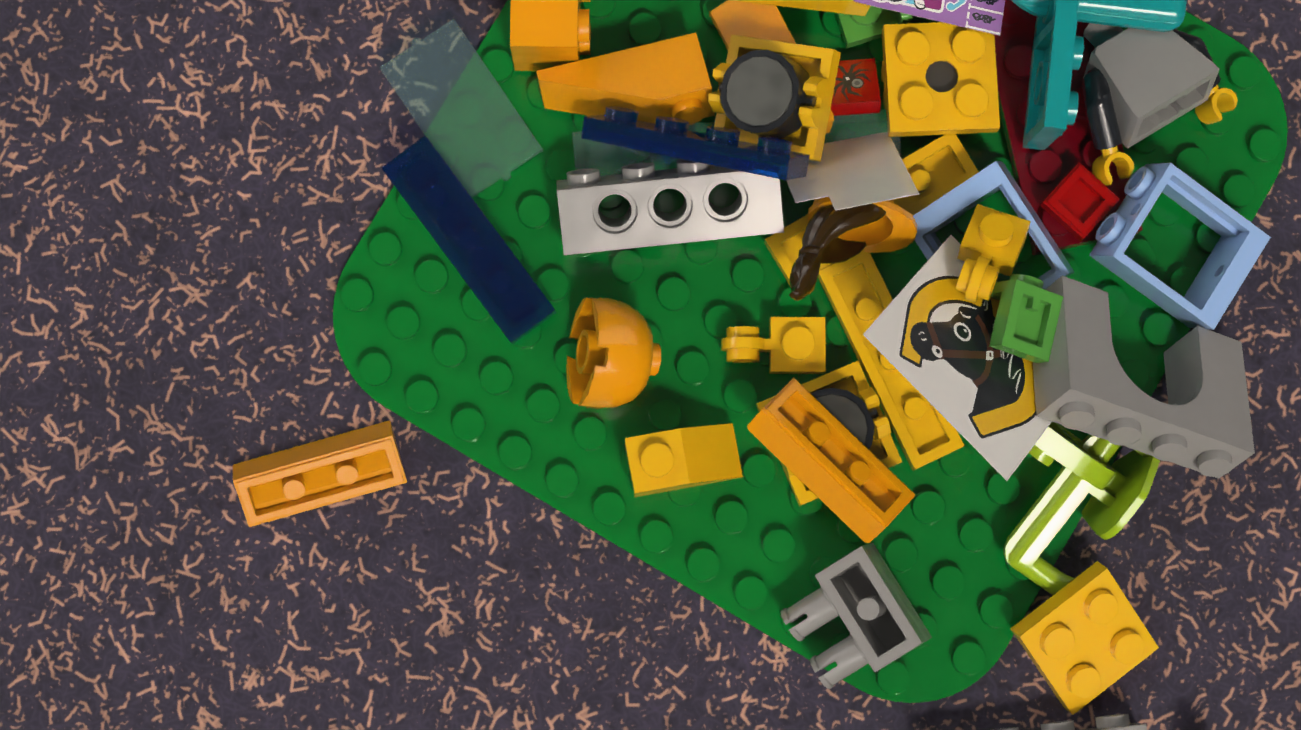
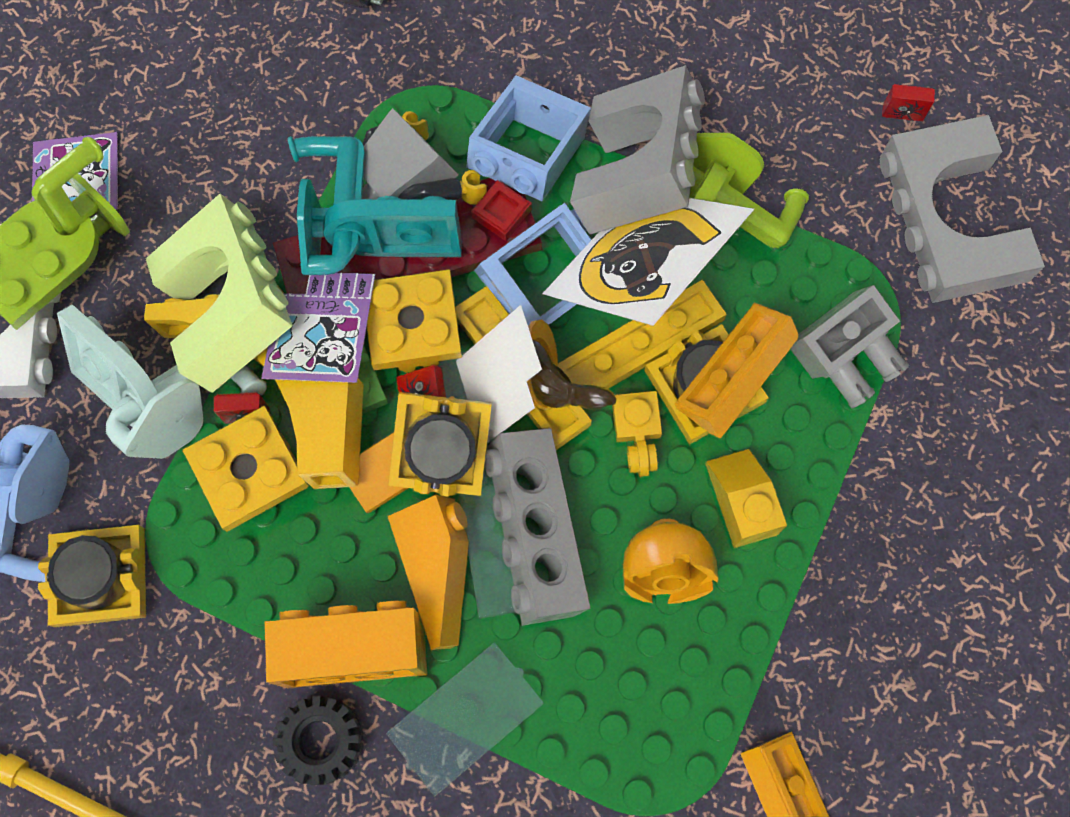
camera: 90 degrees left, 10 degrees down
(469, 240) = (581, 697): clear blue plate -> none
(717, 147) = (491, 482): clear blue plate -> none
(989, 248) = (550, 256): yellow plate -> none
(1025, 318) = (608, 222): bright green bracket -> none
(1084, 637) = (831, 186): yellow plate -> none

